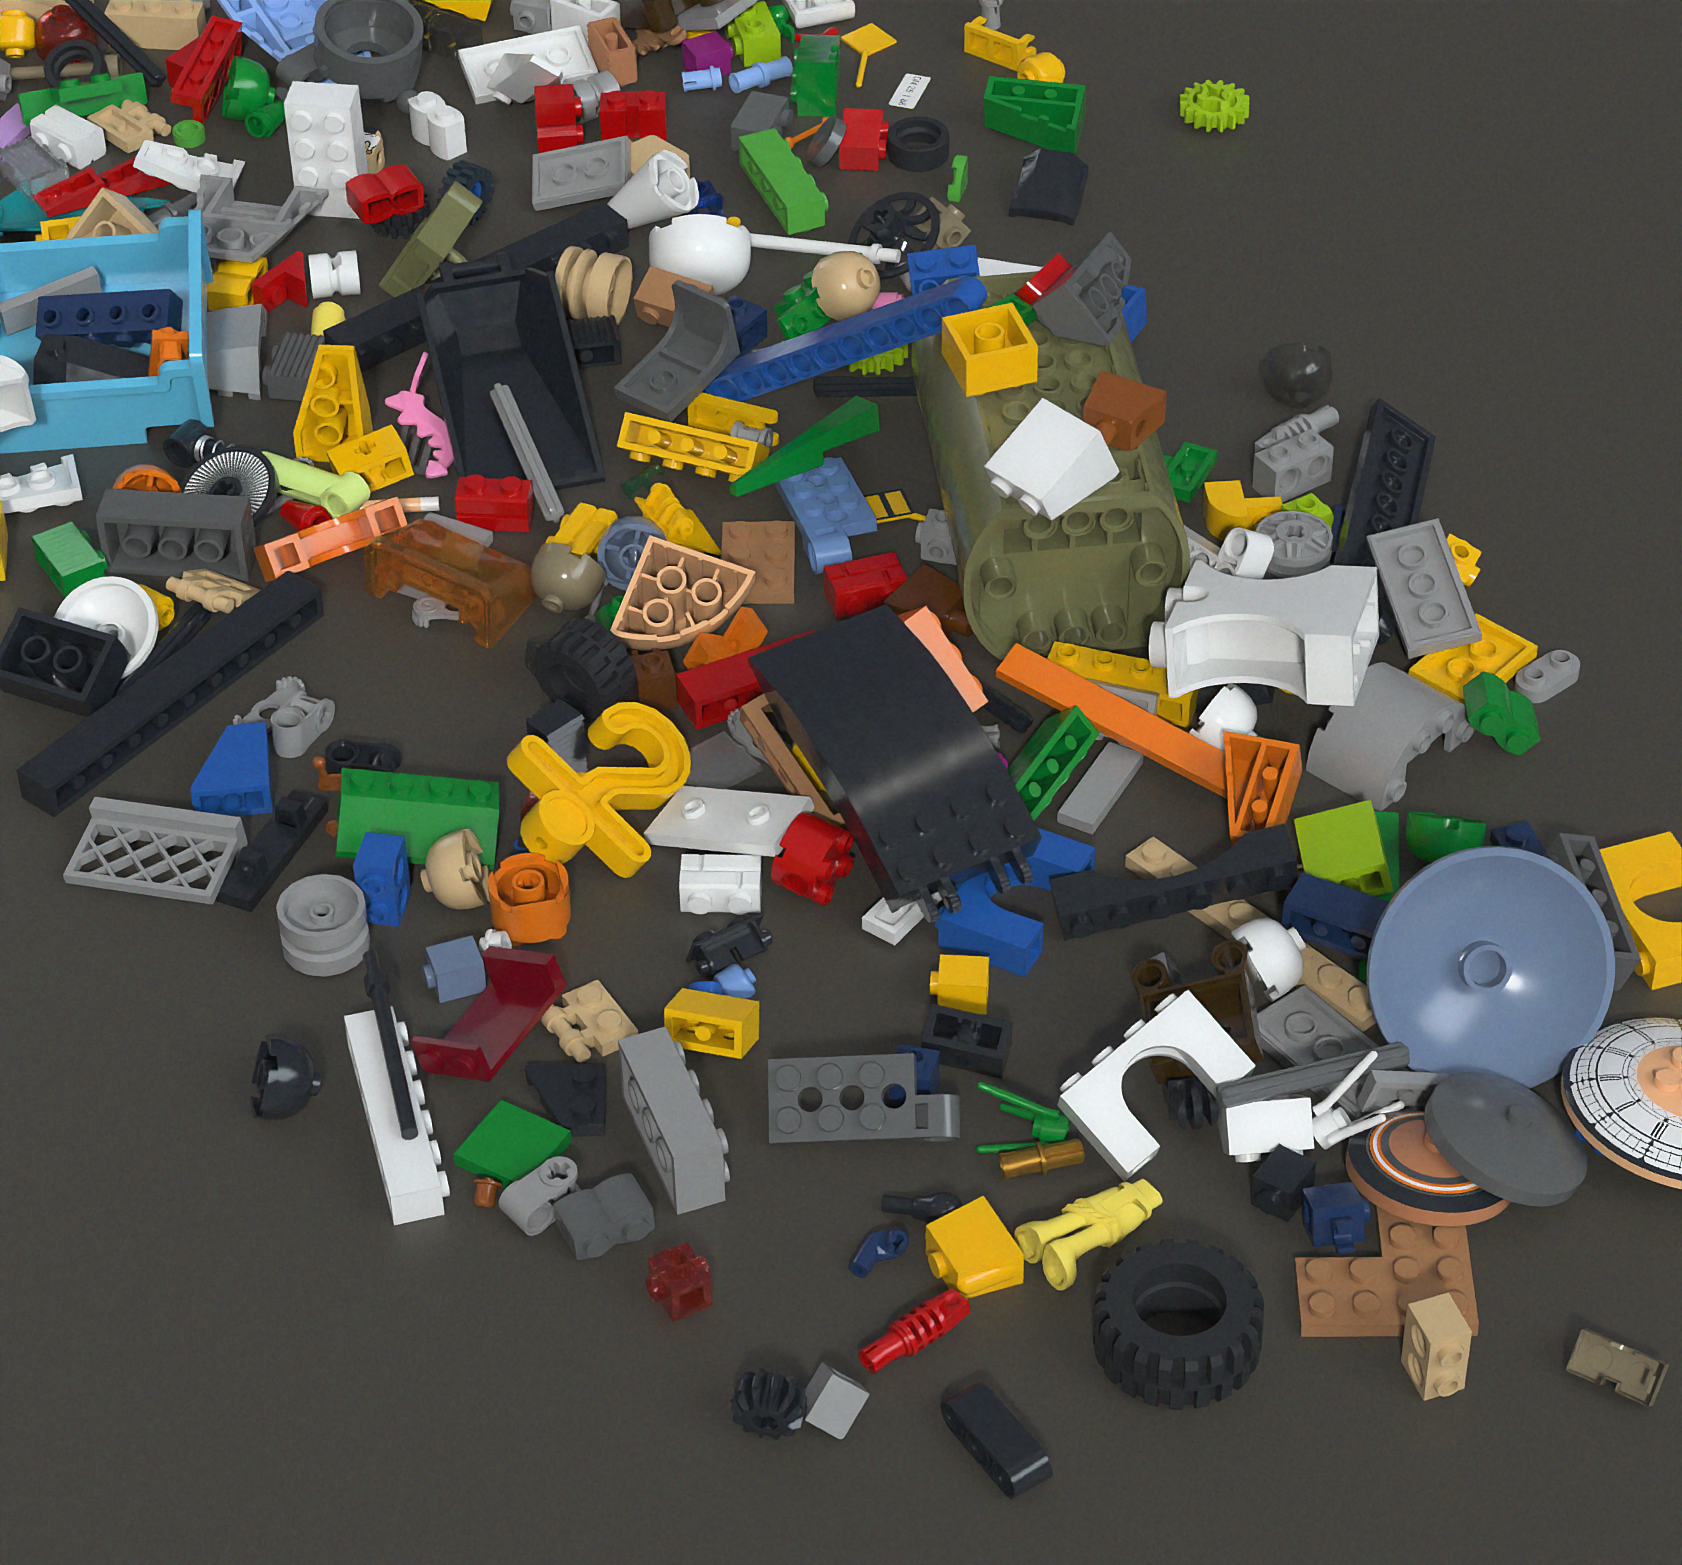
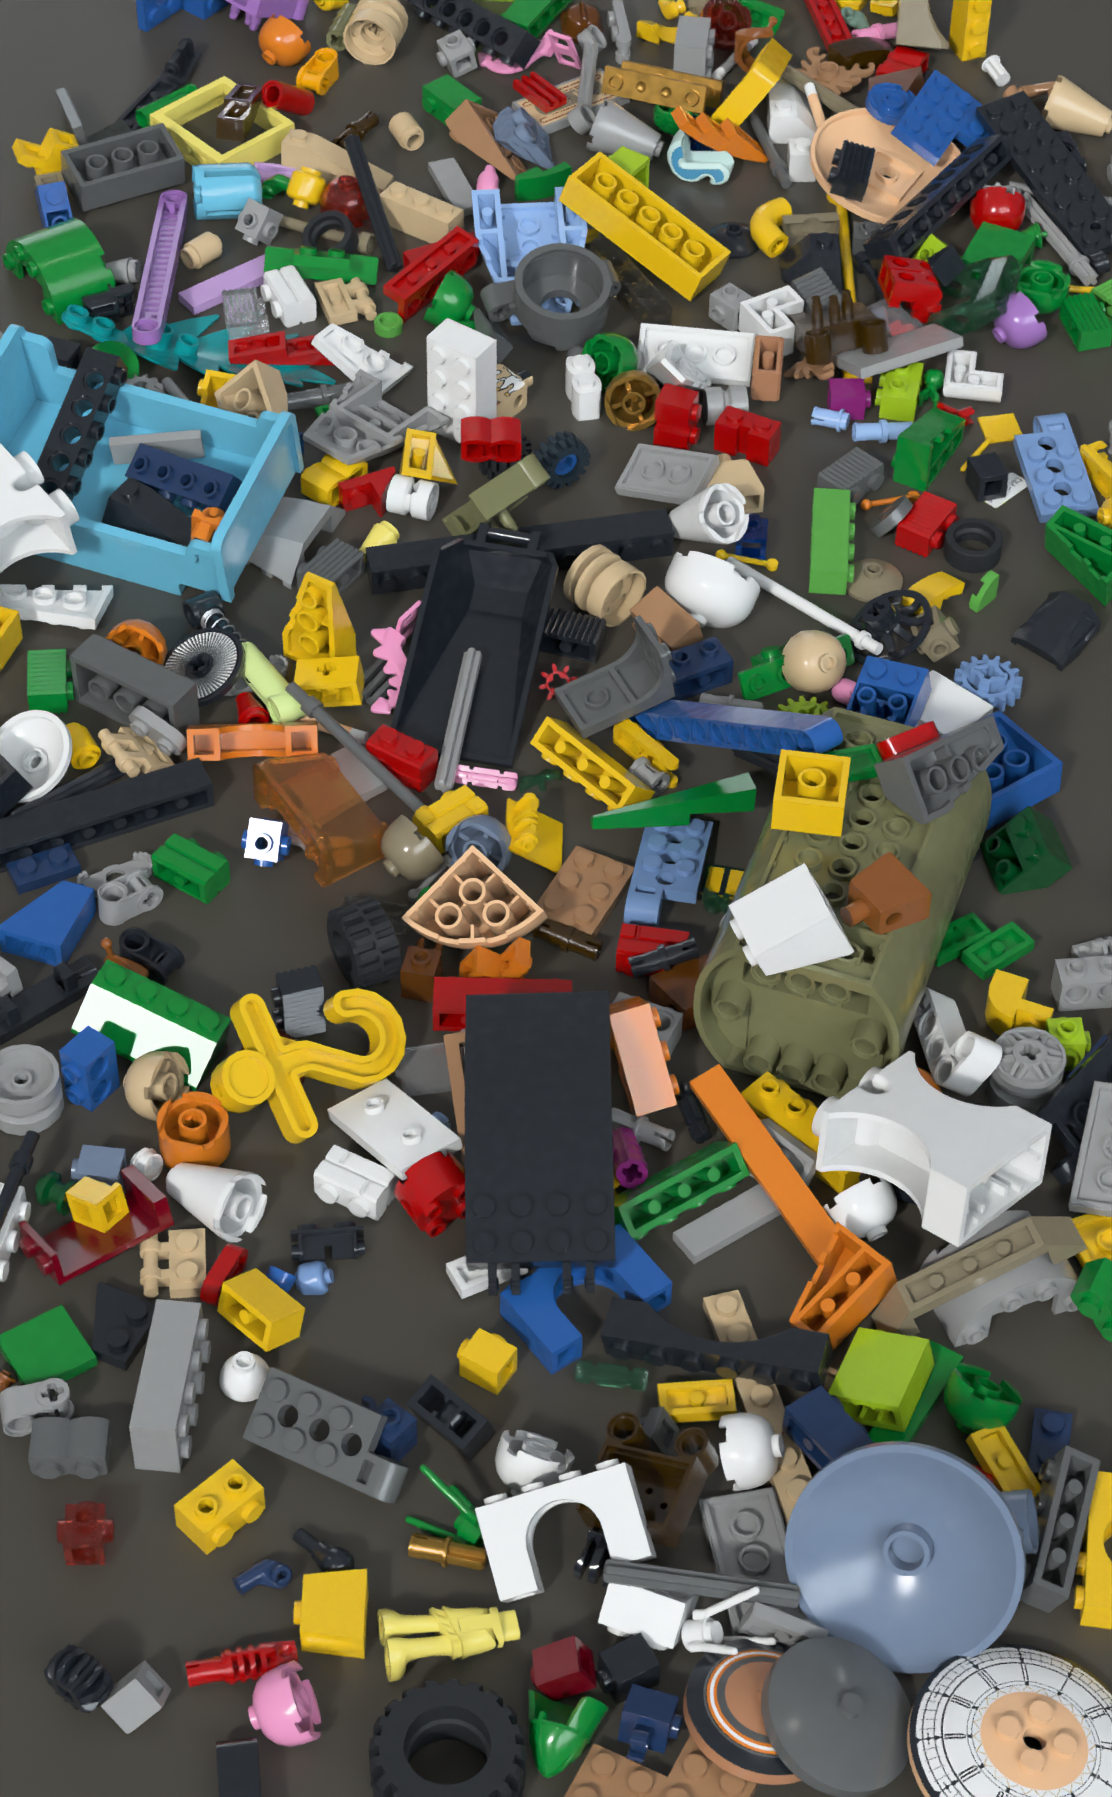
camera: 25 degrees right, 5 degrees up
(187, 730) = (43, 868): none -> dark blue plate
(226, 561) = (148, 724): none -> light grey plate
(321, 233) = (424, 457): none -> yellow slope
(348, 674) = (191, 868): none -> green brick
(379, 485) = (314, 709): none -> dark grey bar
(417, 608) = (275, 833): none -> brick
(417, 1003) = (51, 1189): none -> dark green wheel
(455, 85) = (612, 355): none -> green cylinder
(475, 995) = (97, 1203): none -> yellow brick
(499, 119) = (631, 400): none -> pearl gold cylinder
(591, 494) = (486, 778): none -> bright pink axle
(595, 943) = (219, 1197): none -> white cone
(597, 379) = (549, 677): none -> red gear
(647, 1004) = (227, 1266): none -> red beam
(732, 1090) = (243, 1376): none -> white brick
(779, 604) = (569, 939): none -> dark brown pin
(794, 1208) = (220, 1507): none -> yellow brick
(845, 205) = (873, 579): none -> dark tan dish
(888, 579) = (664, 957): none -> black pin
(890, 81) = (986, 477): none -> black brick
(892, 527) = (714, 903): none -> clear green piece
(912, 183) = (935, 589): none -> yellow slope
(929, 42) = (1065, 455): none -> medium blue hinge
(986, 1345) = (285, 1707): none -> bright pink cylinder
(1019, 247) = (990, 681): none -> medium blue gear
(1069, 1048) = (530, 1460): none -> white cylinder
(1085, 953) = (611, 1375): none -> clear green axle
(1169, 373) = (1025, 853): none -> dark green slope
(1184, 939) = (697, 1400): none -> yellow plate
(1225, 1206) = (563, 1668): none -> dark red brick
(1268, 1256) = (560, 1731): none -> green helmet
(1371, 726) = (975, 1267): none -> dark tan slope

